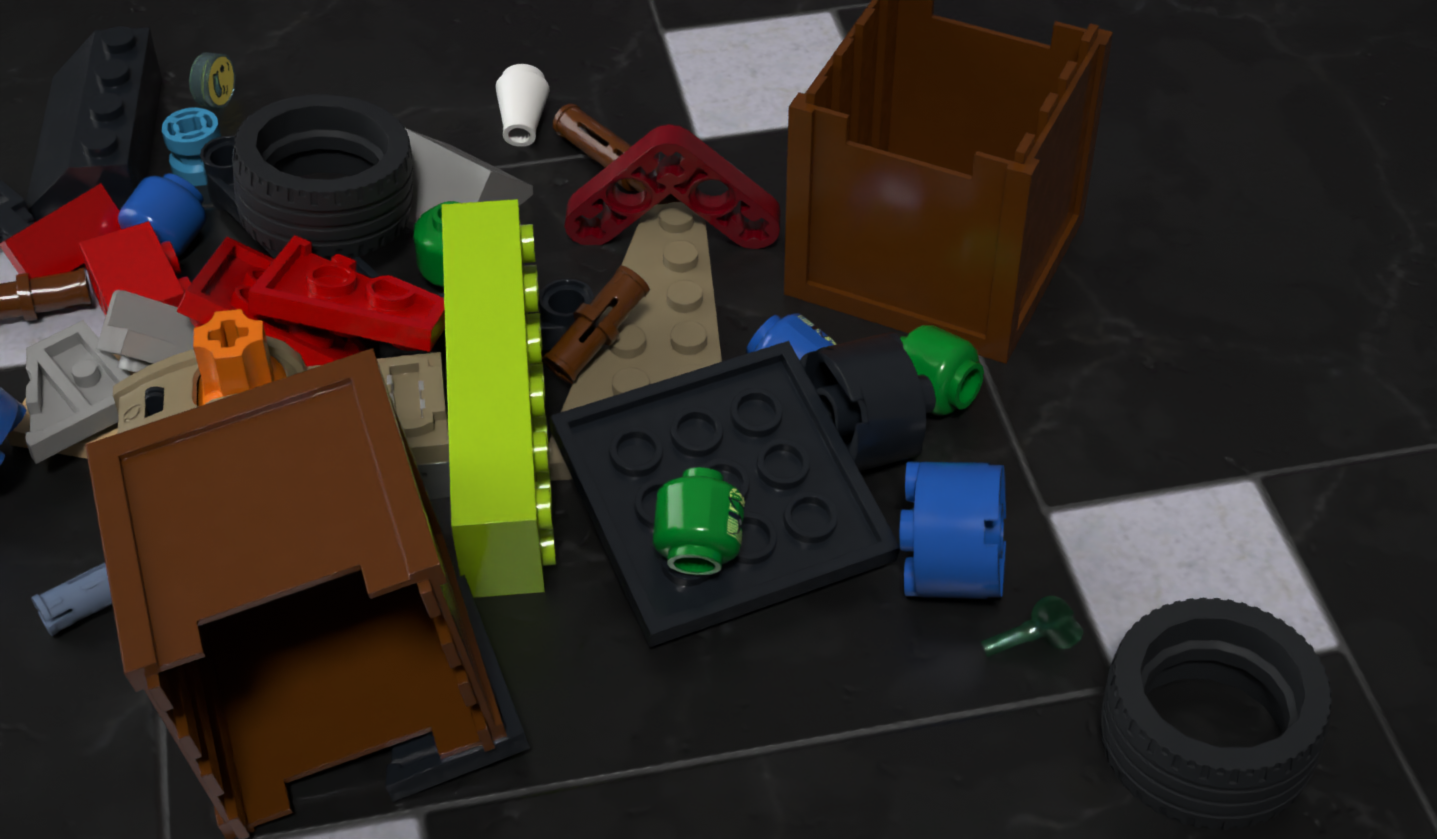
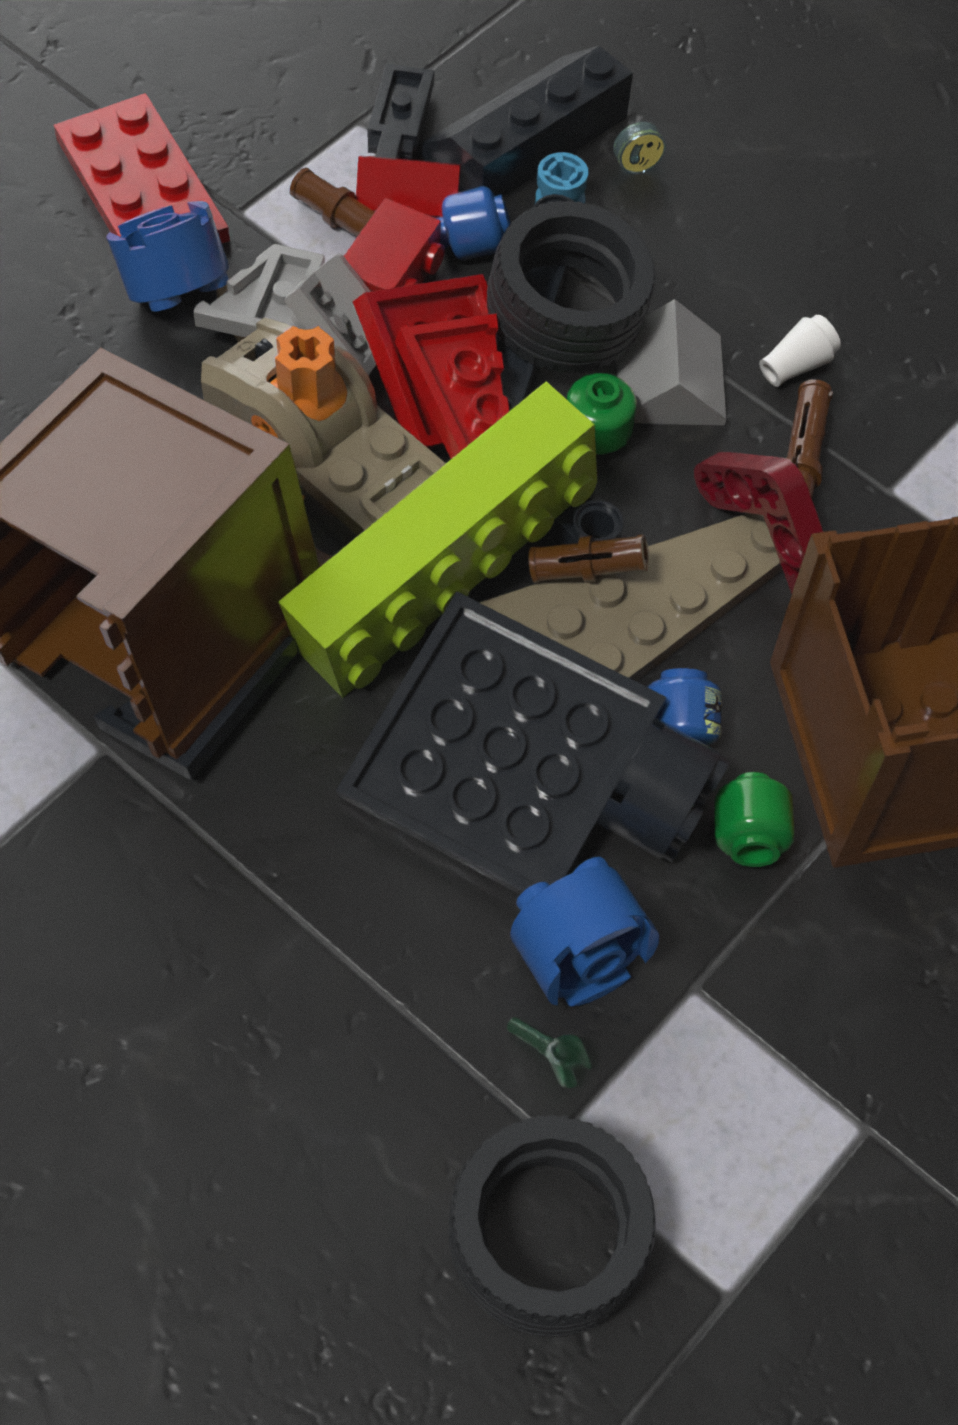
camera: 50 degrees right, 15 degrees up
(698, 522) = (431, 752): green head -> none

